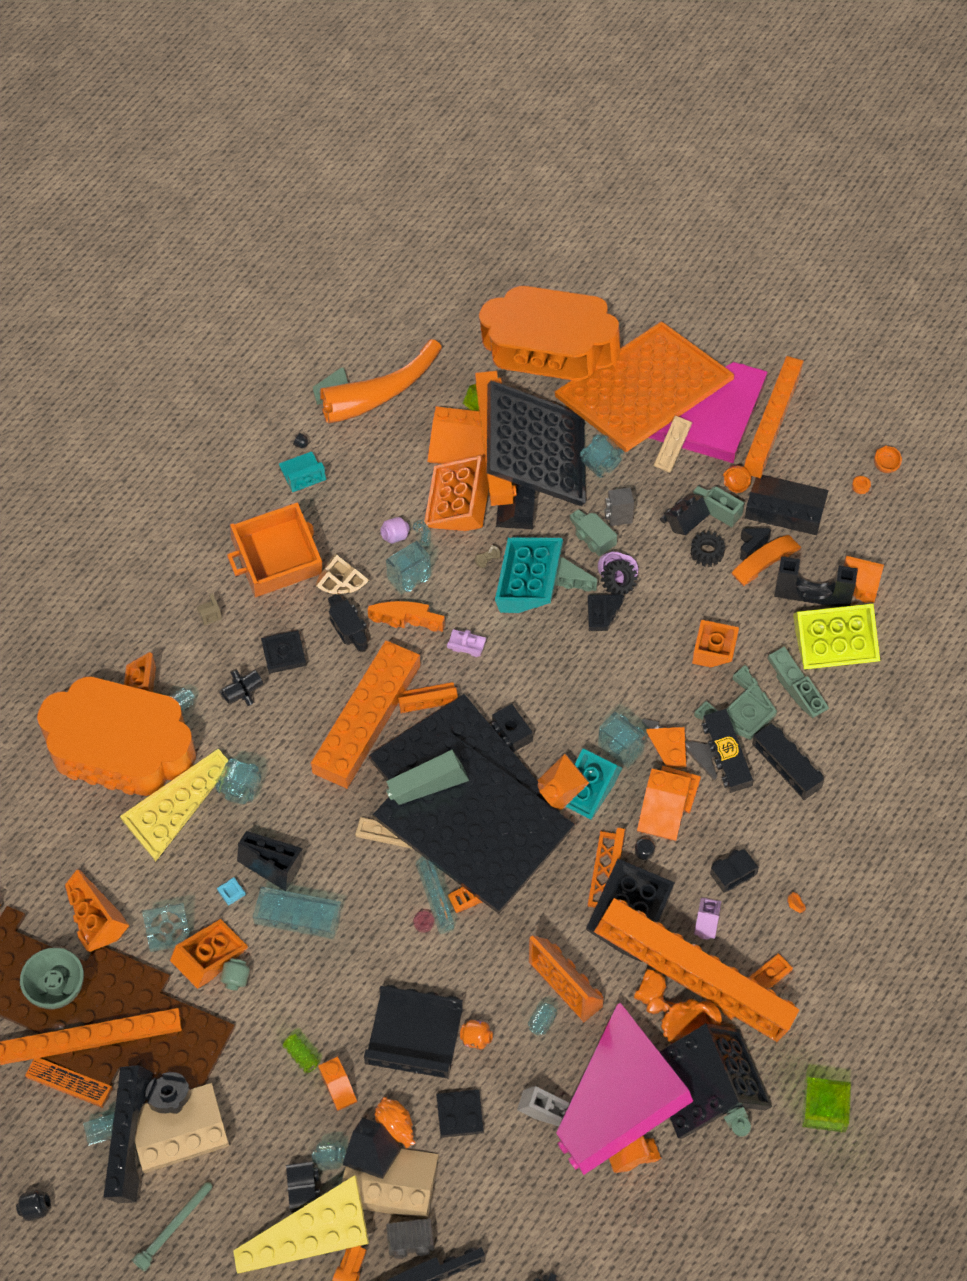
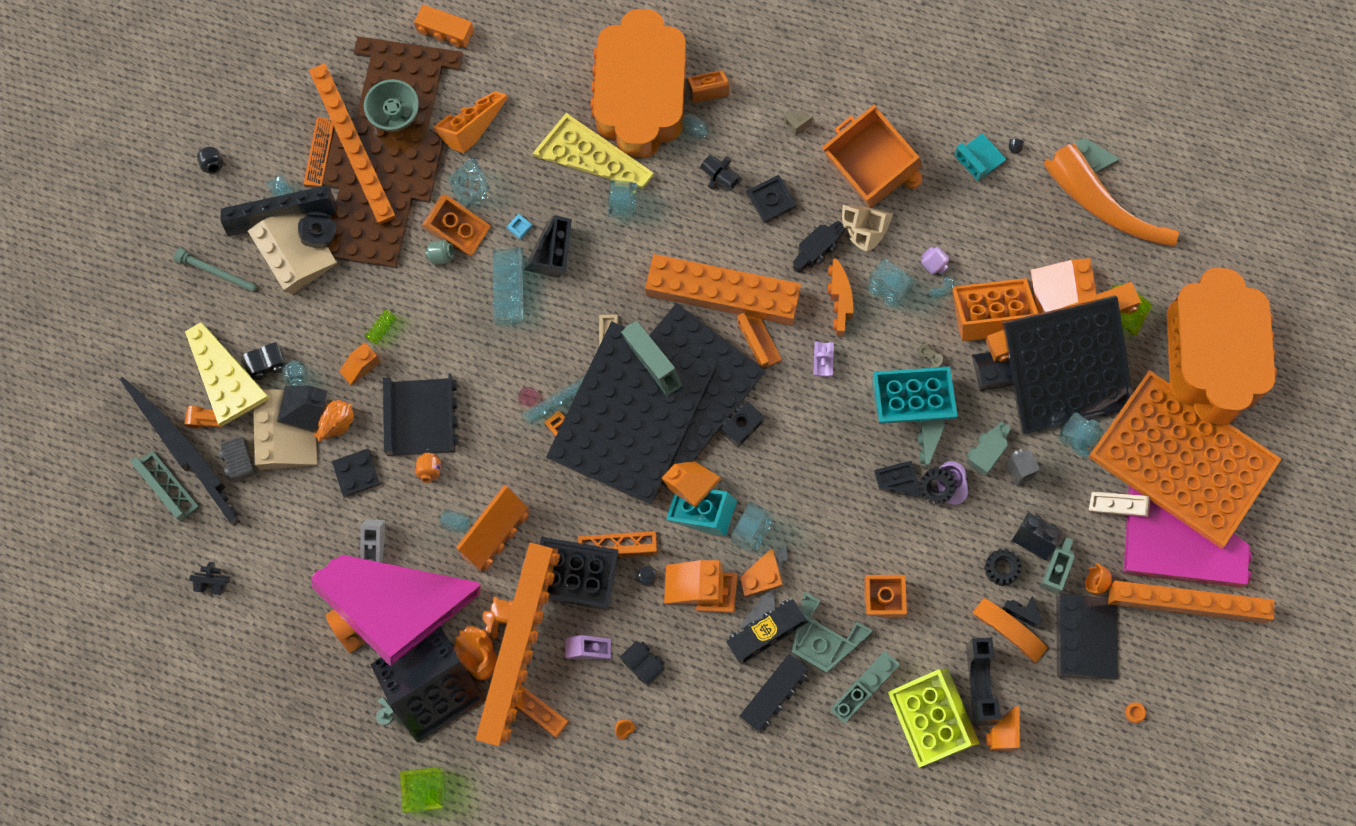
camera: 80 degrees right, 15 degrees up
(887, 459) = (1173, 734): orange hair -> none

